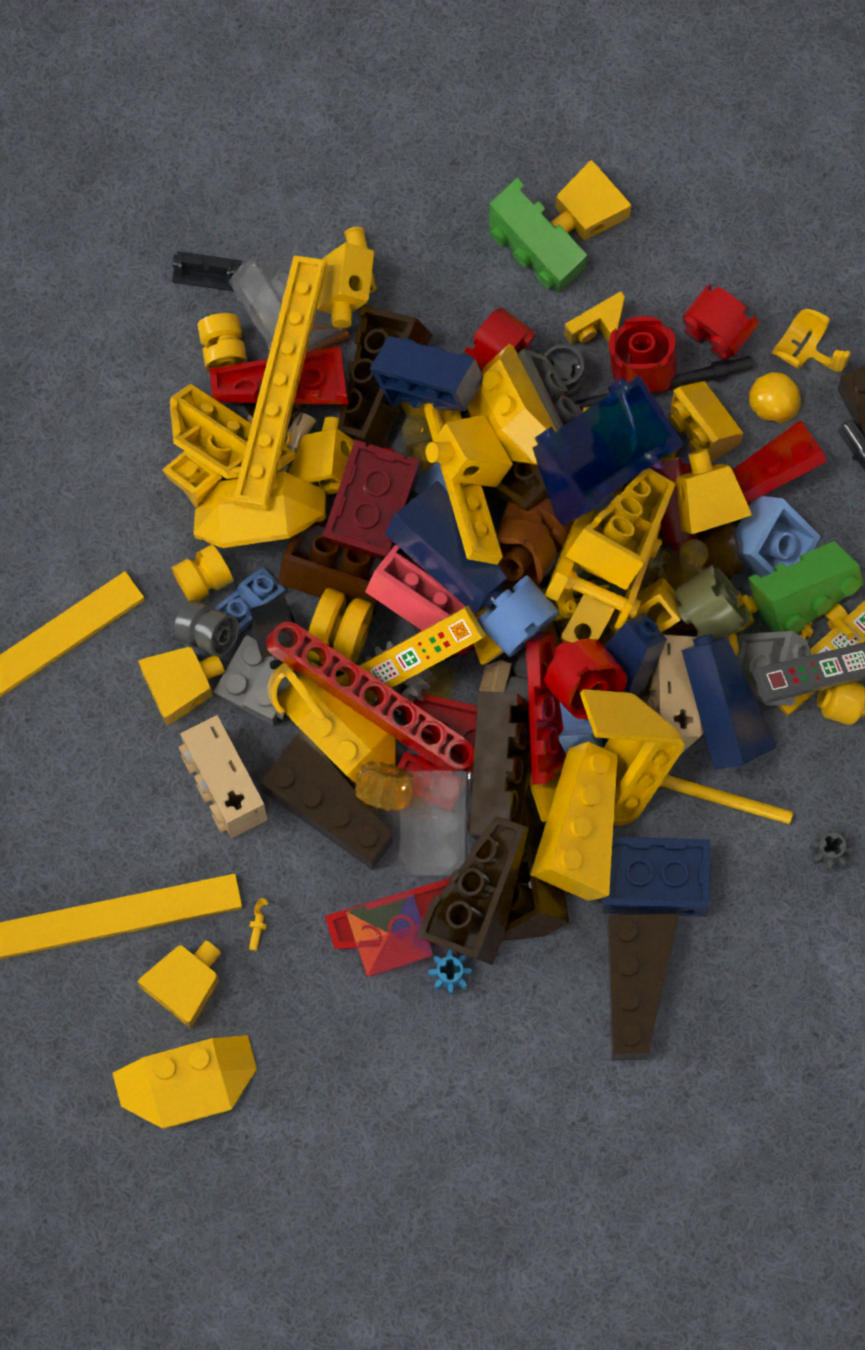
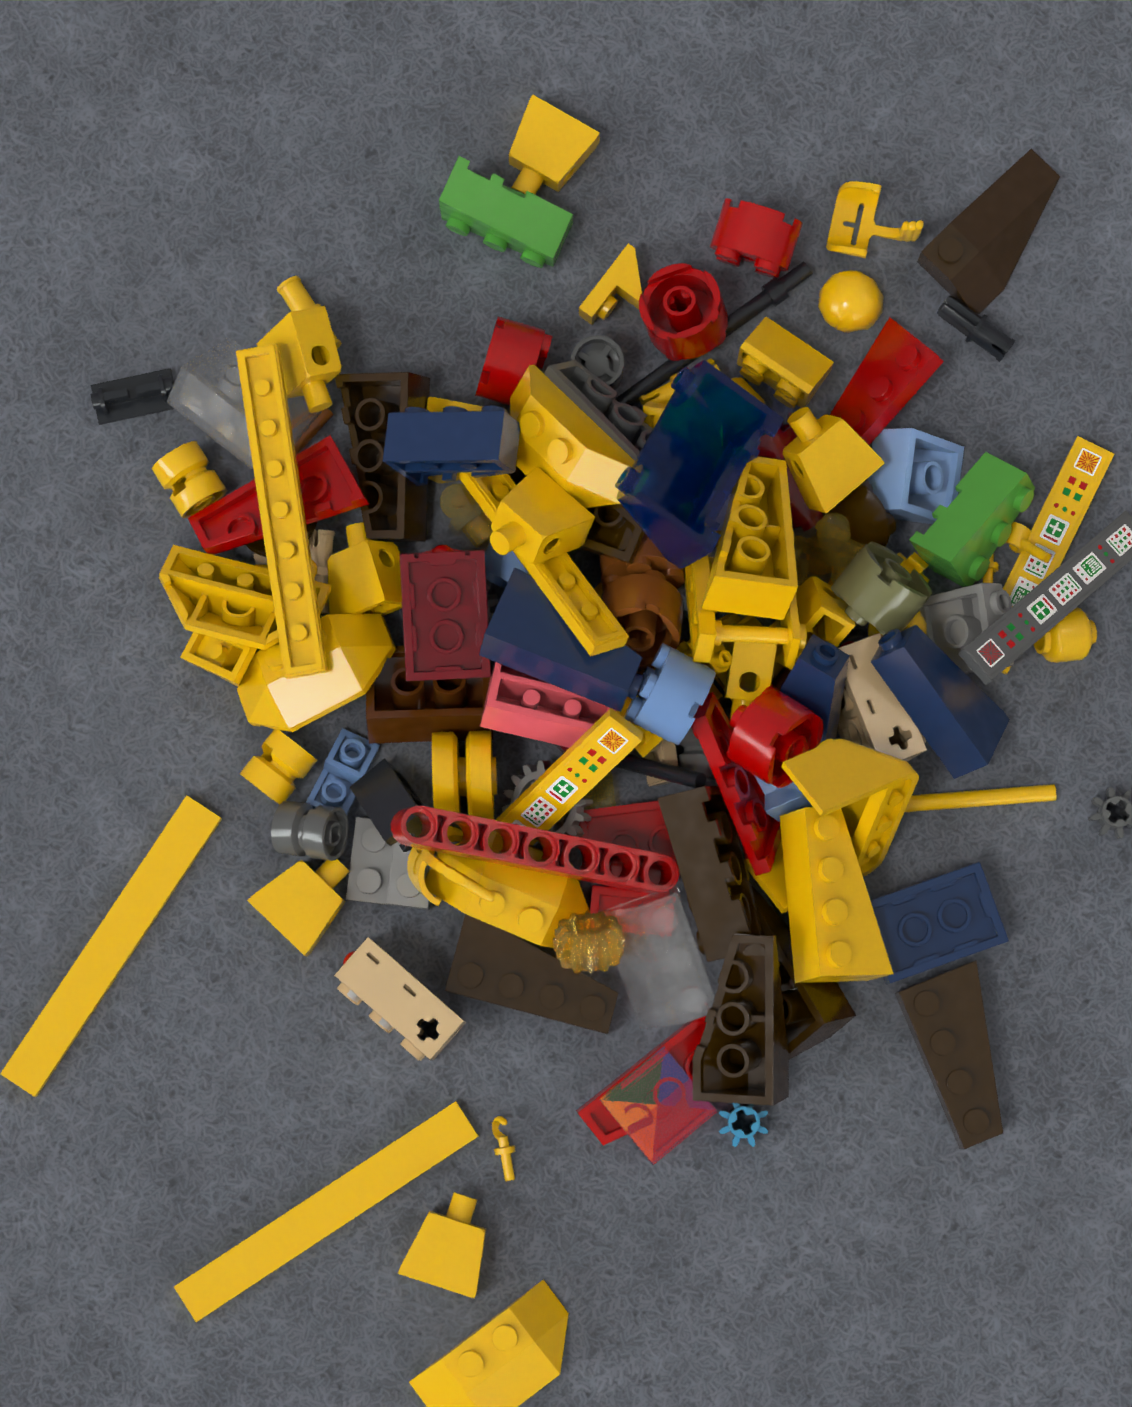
camera: 20 degrees left, 10 degrees up
(484, 677) = (662, 771): none -> black bar

